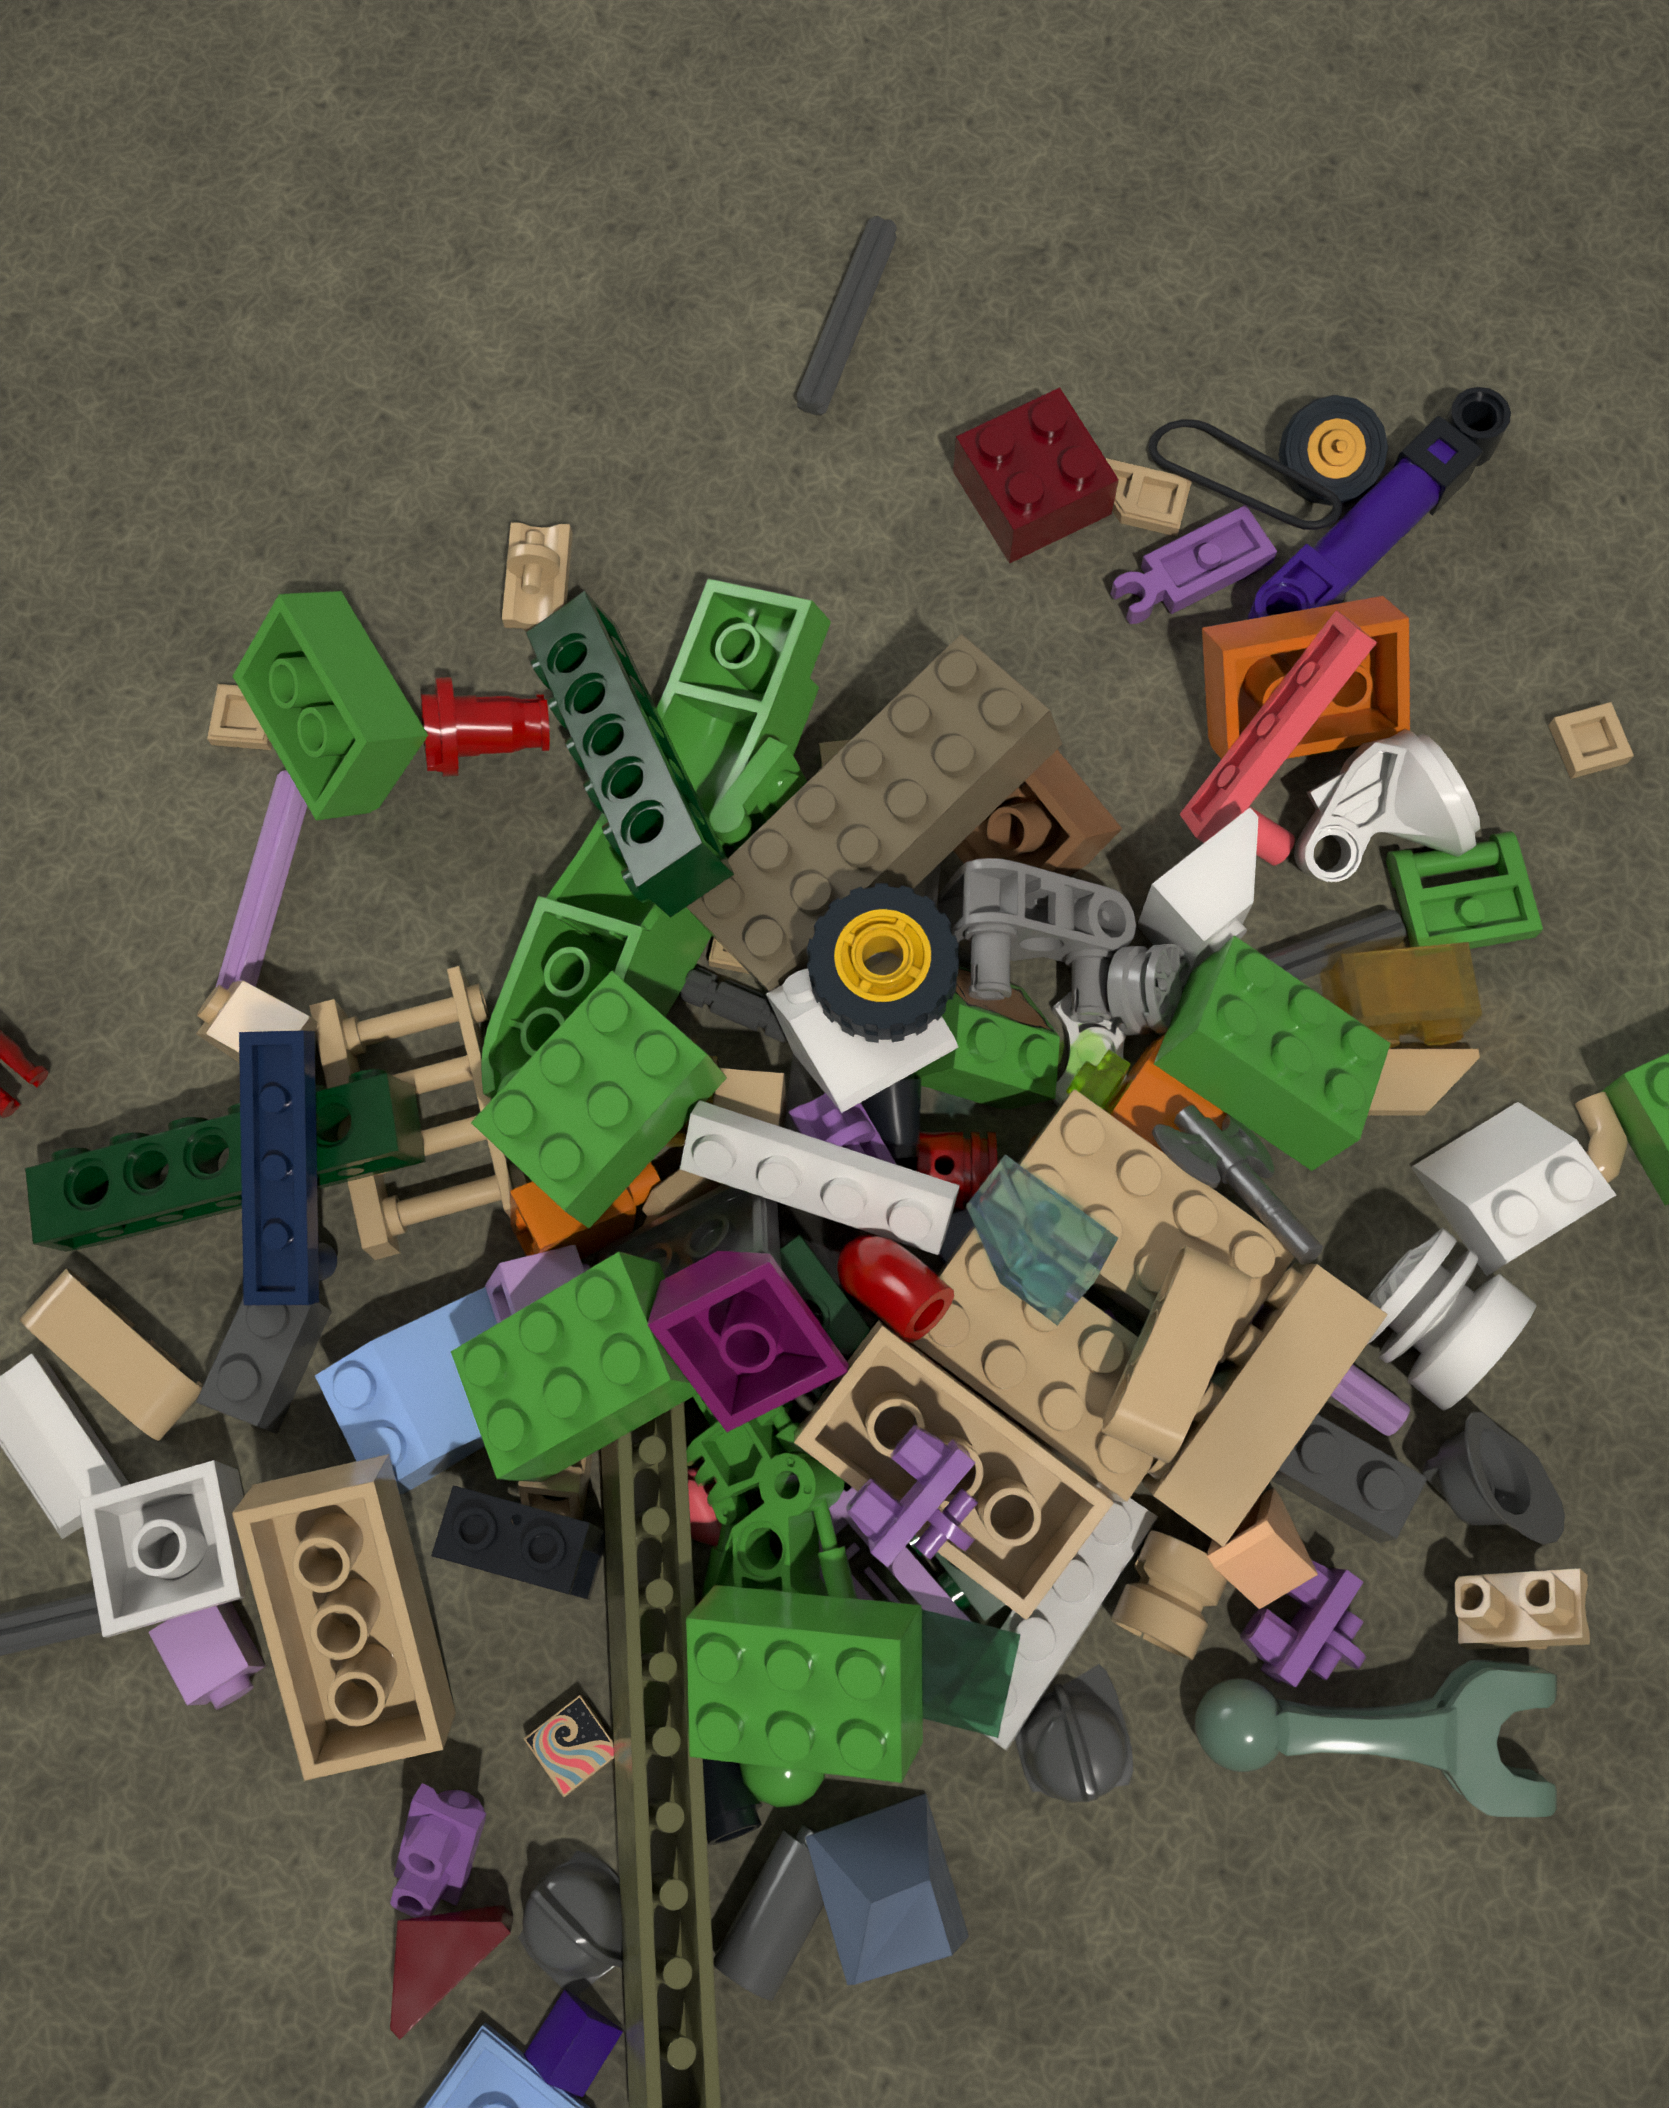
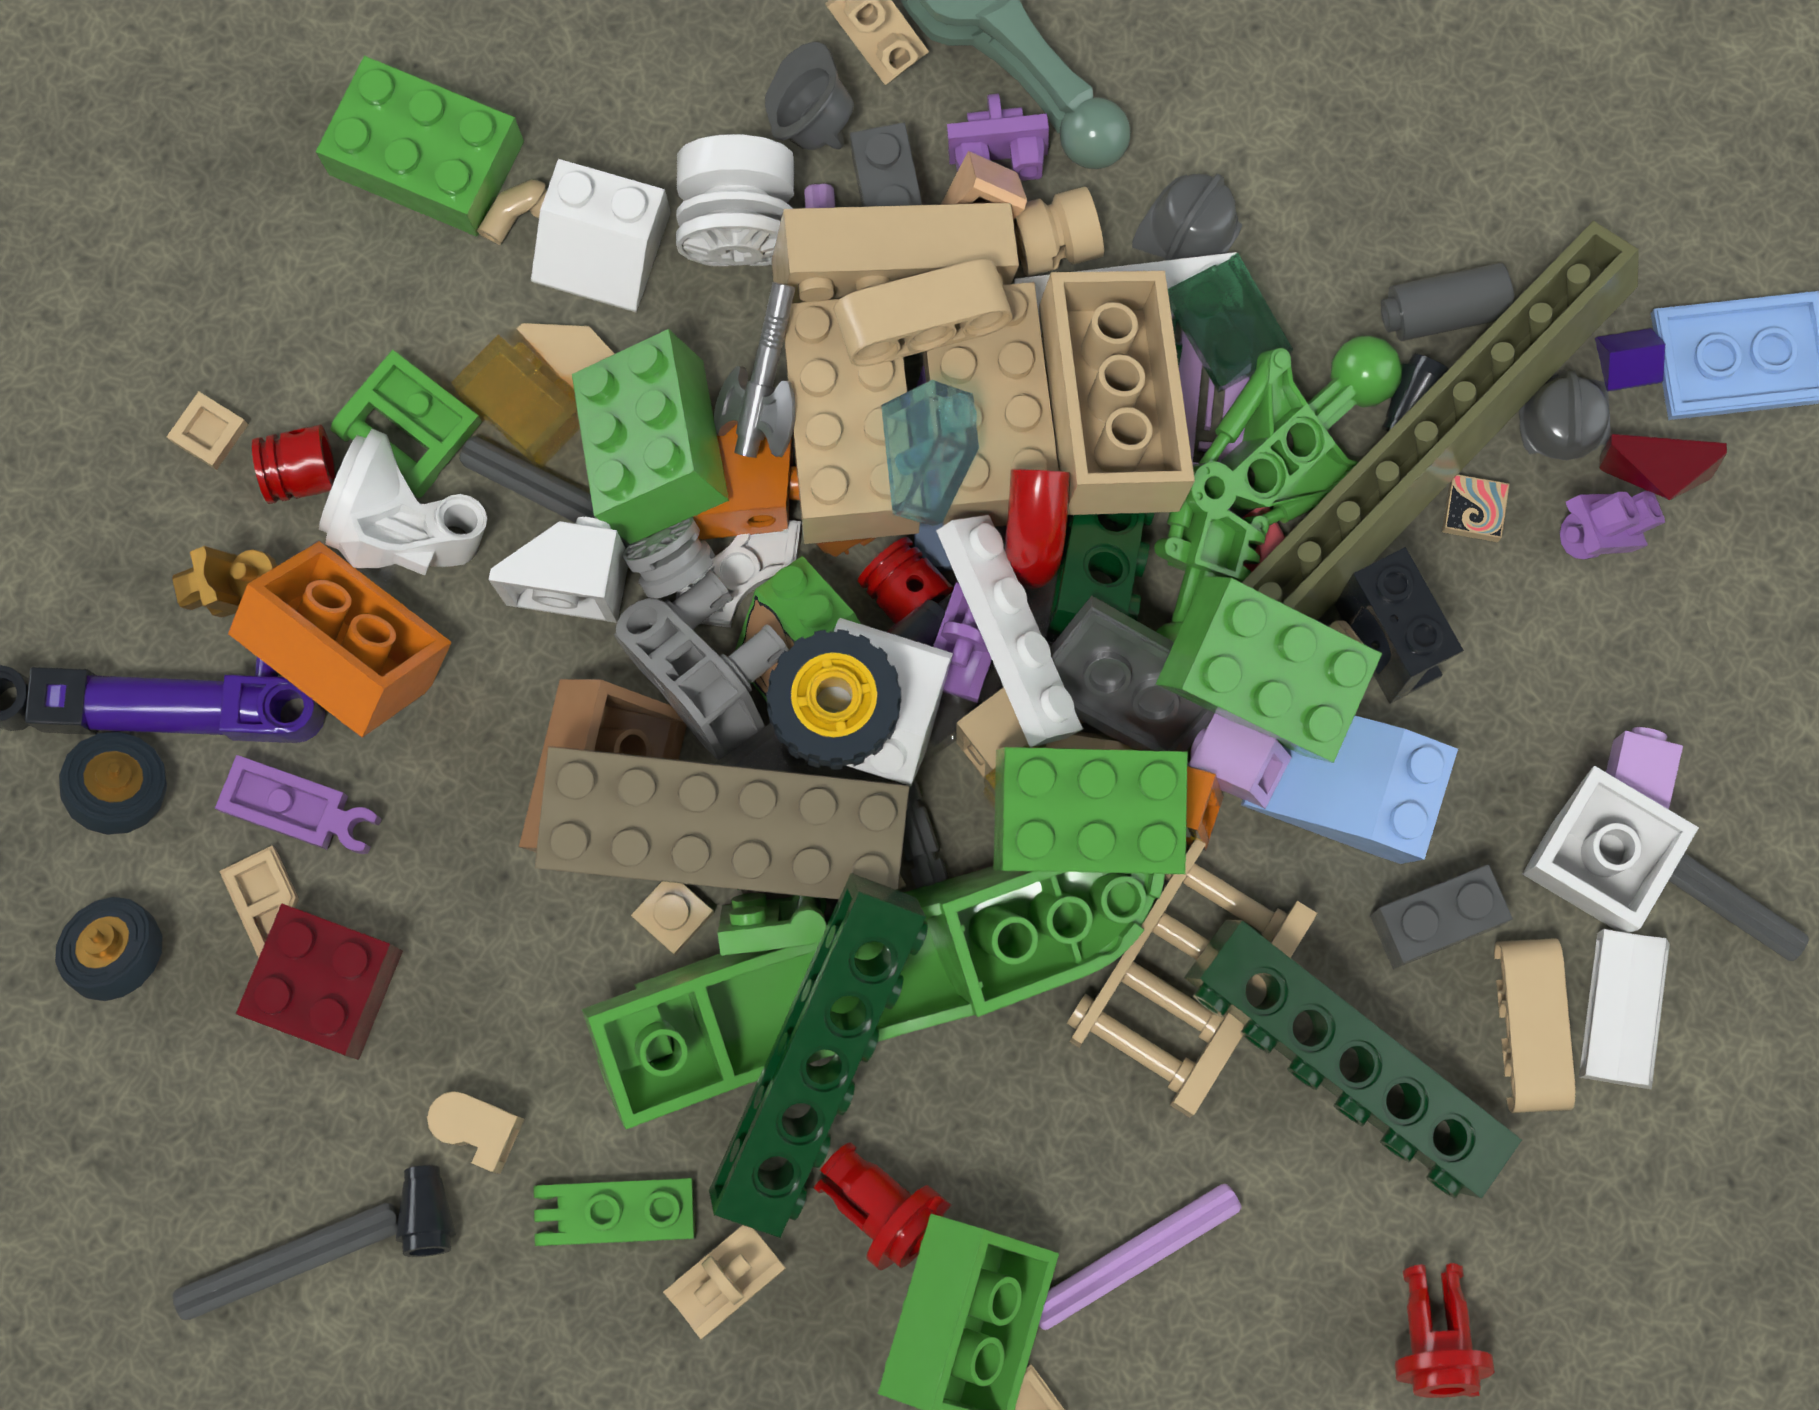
camera: 130 degrees left, 5 degrees up
(246, 1010) = (1244, 1130): tan slope -> none
(280, 1170) = (1324, 992): dark blue piece -> none
(345, 1617) = (1541, 692): tan brick -> none
(665, 554) = (617, 1212): none -> bright green hinge
(742, 1335) = (1160, 573): magenta slope -> none
(790, 422) = (424, 1213): none -> black cone
(805, 1682) = (1318, 371): bright green brick -> none
(822, 503) = (468, 1120): none -> tan leg
(887, 1890) = (1379, 246): sand blue slope -> none
(894, 1523) = (1162, 367): medium lavender hips -> none
(1100, 1081) = (770, 536): clear neon green plate -> none
(1197, 356) = (108, 949): none -> black wheel
(1235, 495) = (216, 831): black piece -> none
(1275, 734) = (411, 615): coral piece -> none
(1437, 634) = (219, 579): none -> pearl gold hips
(1503, 772) = (294, 464): none -> red piece

